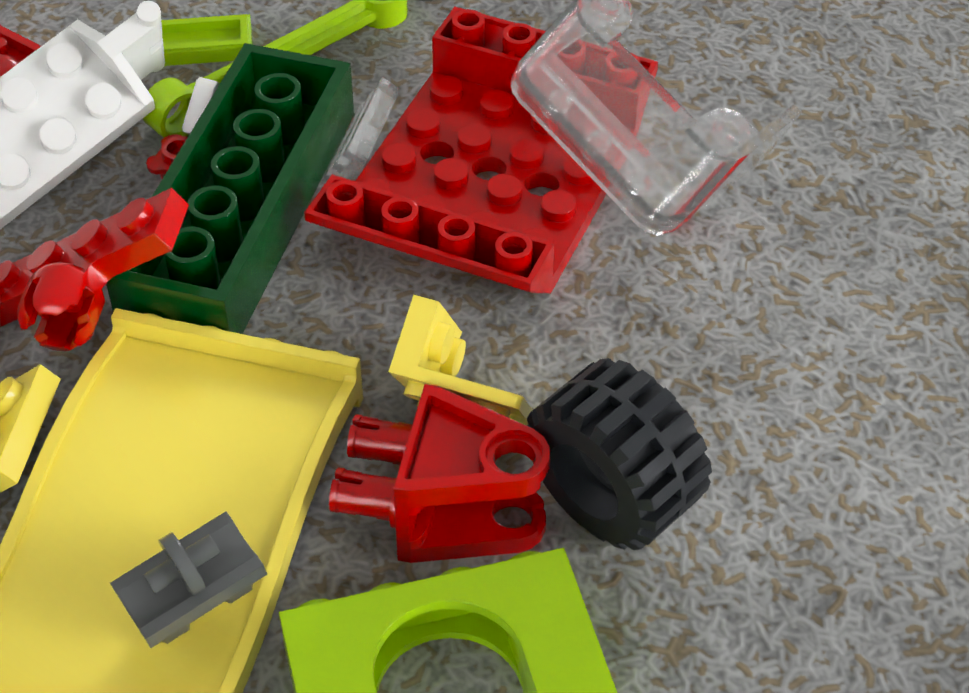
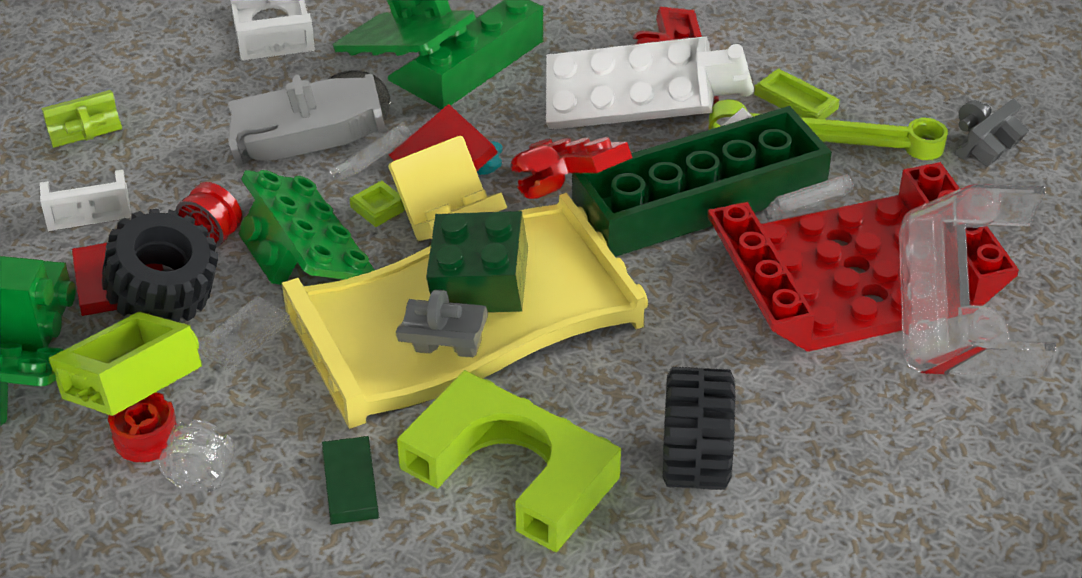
camera: 50 degrees right, 5 degrees down
(134, 466) = (480, 259): none -> dark green brick
(432, 355) = (674, 321): light yellow bracket -> none
(446, 479) = (608, 381): red piece -> none

